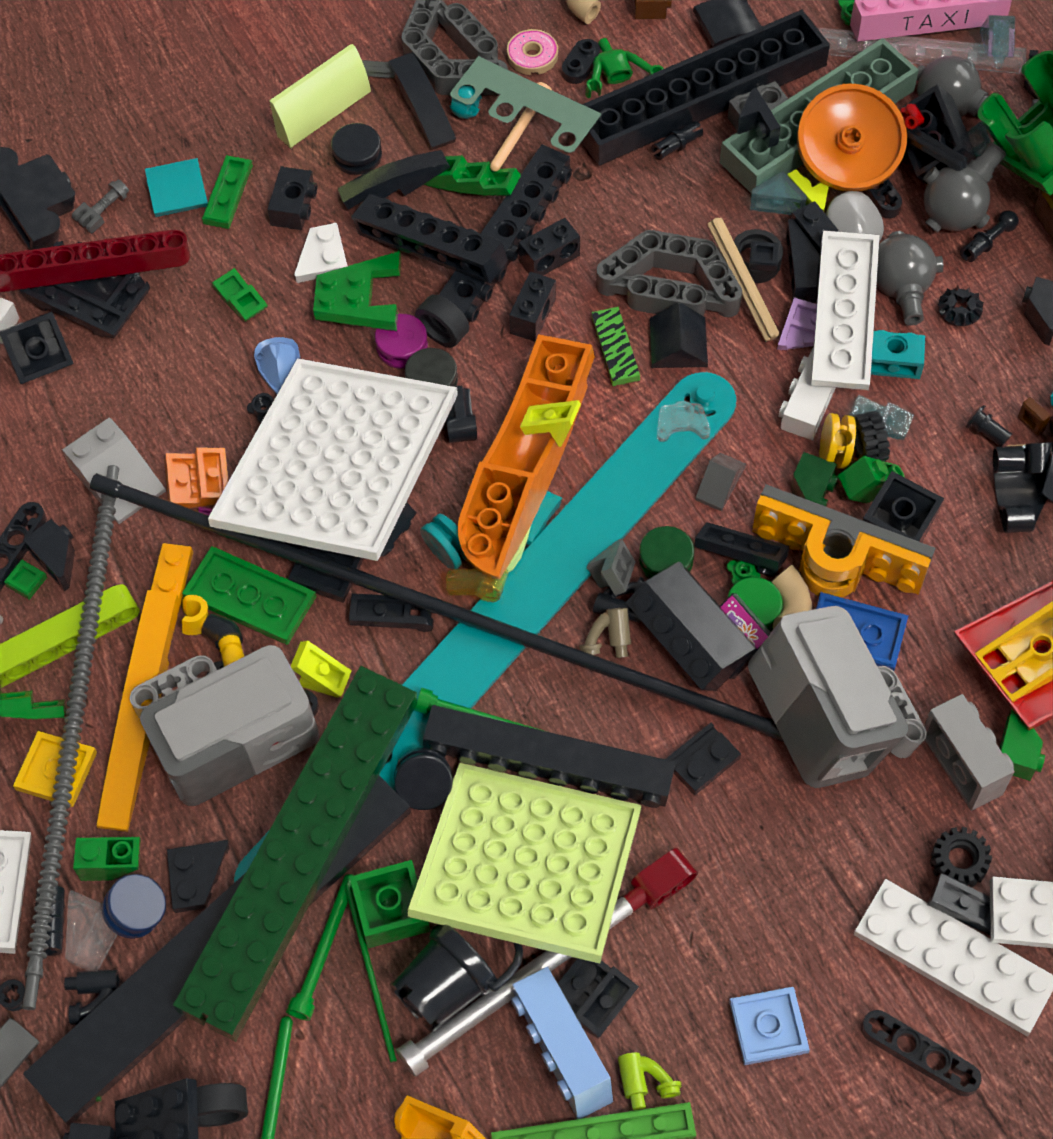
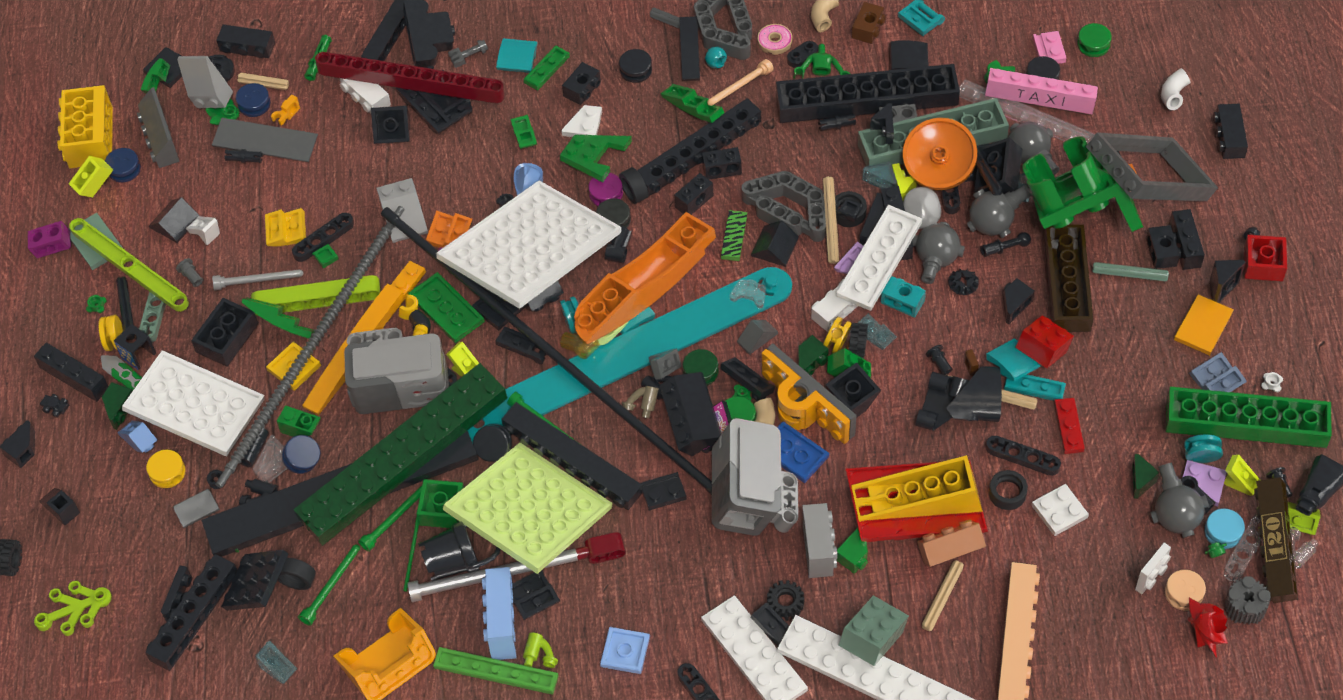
camera: 25 degrees right, 5 degrees down
(53, 551) = (347, 244): black slope -> none
(193, 874) = (343, 450): black wing -> none
(319, 96) = (626, 26): yellowish green slope -> none
(401, 174) = (653, 89): black slope -> none
(430, 238) = (650, 133): black brick -> none
(524, 92) = (751, 62): sand green piece -> none
(551, 418) = (666, 263): neon yellow slope -> none
(912, 116) = (986, 154): red arm -> none
(999, 35) = (1077, 120): clear light blue slope -> none

